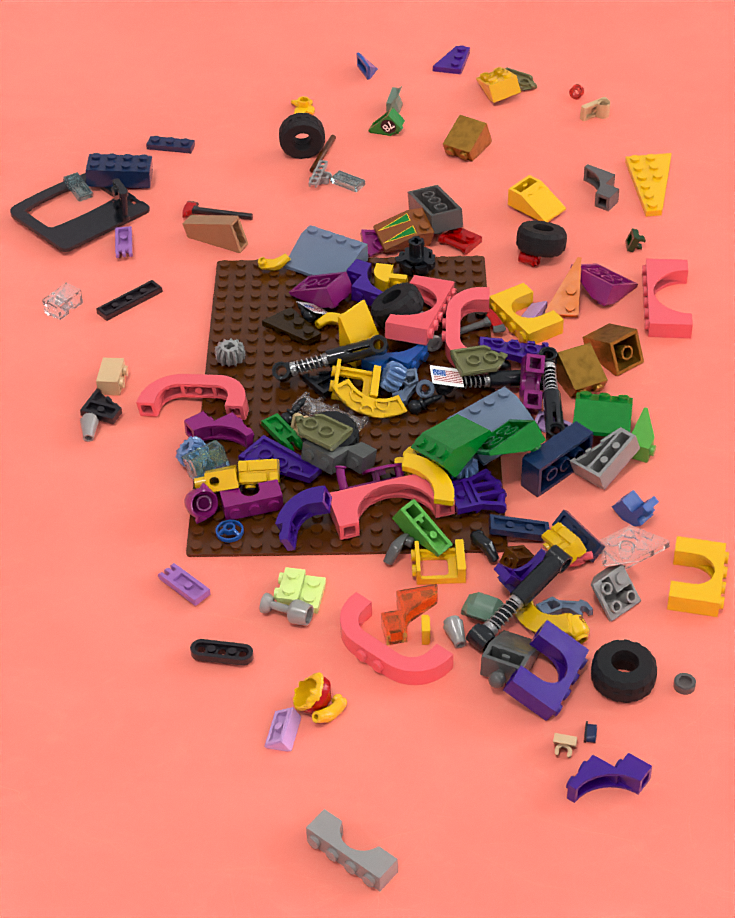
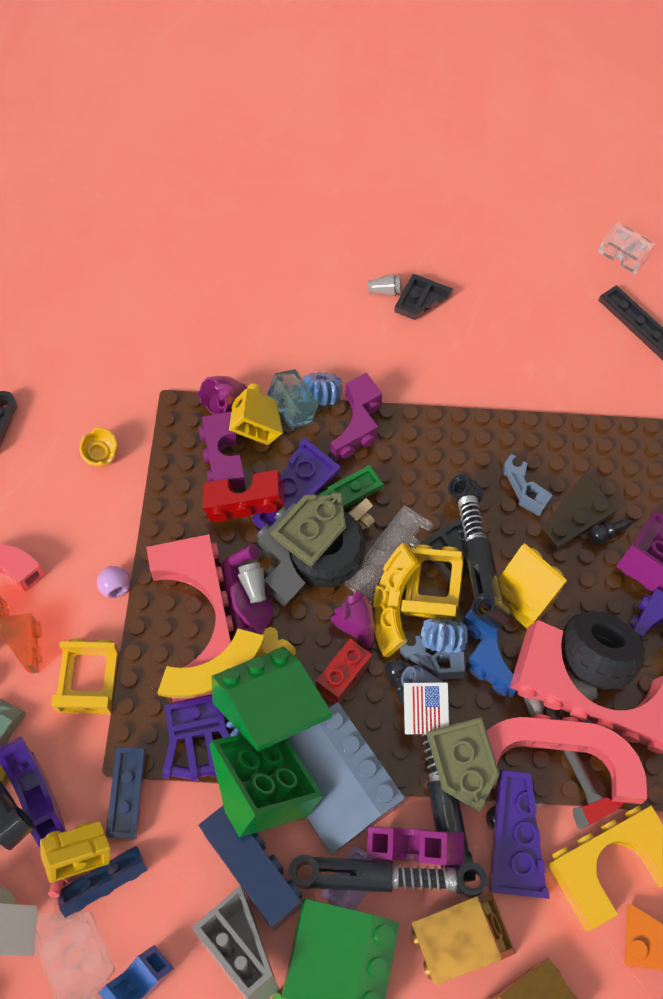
camera: 90 degrees right, 20 degrees up
(112, 376) = (477, 303): tan brick -> none
(184, 584) = (108, 386): medium lavender hinge -> none
(193, 386) = (420, 434): coral arch -> none
(229, 352) = (512, 430): light grey gear -> none
(229, 524) = (178, 435): blue piece -> none
(246, 577) = (98, 447): none -> yellow hair
(257, 471) = (265, 453): yellow brick -> none
(281, 346) = (517, 480): none -> sand blue piece
(287, 416) = (381, 500): black bar -> none
(291, 464) = (263, 496): none -> red arch
(297, 612) = (32, 502): light grey piece -> none
(298, 509) = (179, 494): dark purple arch -> none
(298, 585) = (73, 508): yellowish green plate -> none
(314, 308) = (610, 539): sticker -> none
(327, 319) = (594, 565): yellow arm -> none
(362, 462) = (253, 581): none -> light grey cone
(363, 556) = (113, 581): none -> lavender piece
(381, 421) = (356, 618): none -> magenta hat
(397, 546) = (120, 624): dark grey arm -> none
(417, 420) = (343, 672): none -> red brick
(421, 527) = (137, 654): bright green slope -> none
(485, 544) = (103, 737): black arm -> none
(515, 556) = (76, 785): reddish brown bracket -> none
(535, 309) = (626, 881): lavender slope -> none

